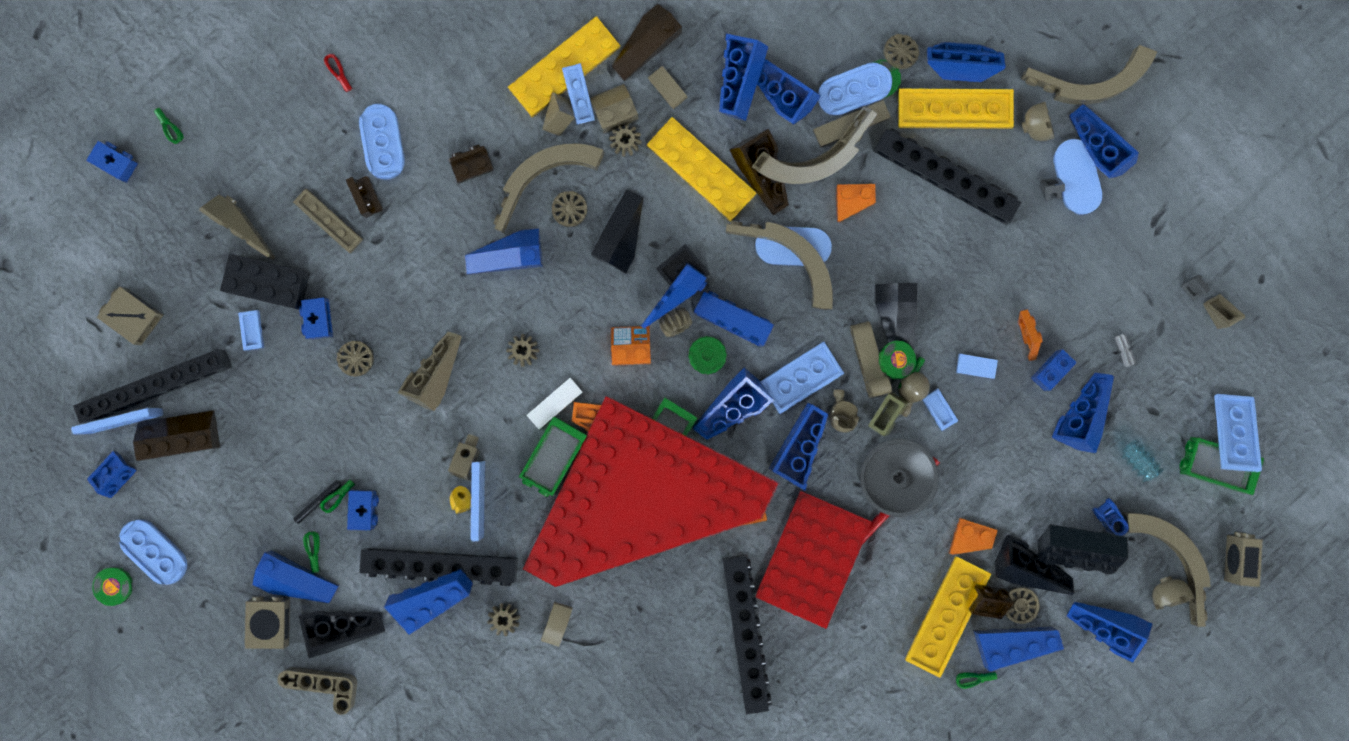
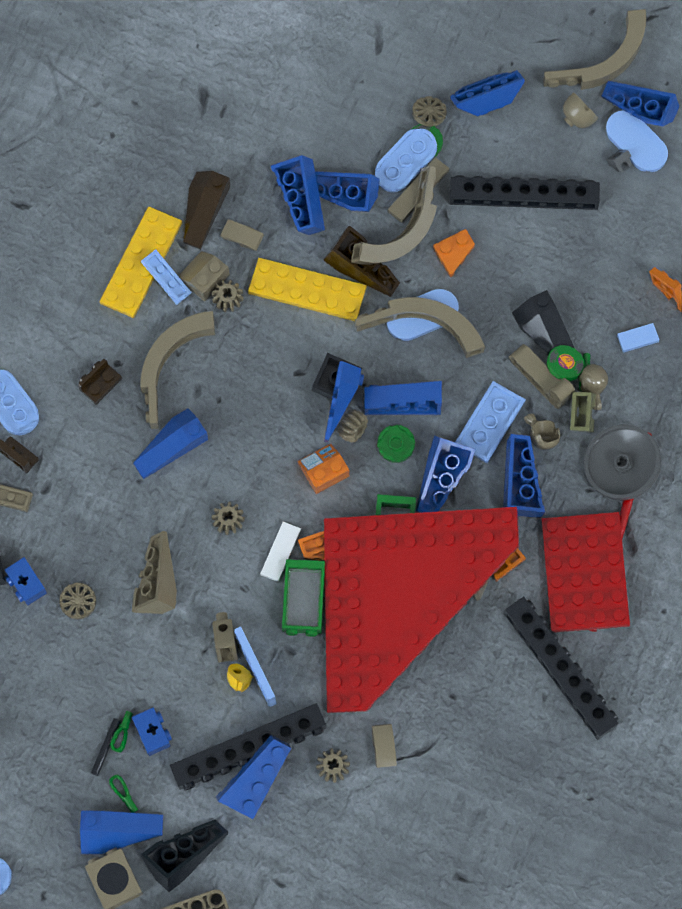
camera: 25 degrees left, 15 degrees down
(558, 115) = (157, 303): dark tan slope -> none
(569, 209) = (207, 378): dark tan wheel -> none
(619, 238) = (265, 381): black wedge -> none
(939, 409) = (626, 390): light blue tile -> none
(956, 108) = (501, 135): yellow plate -> none

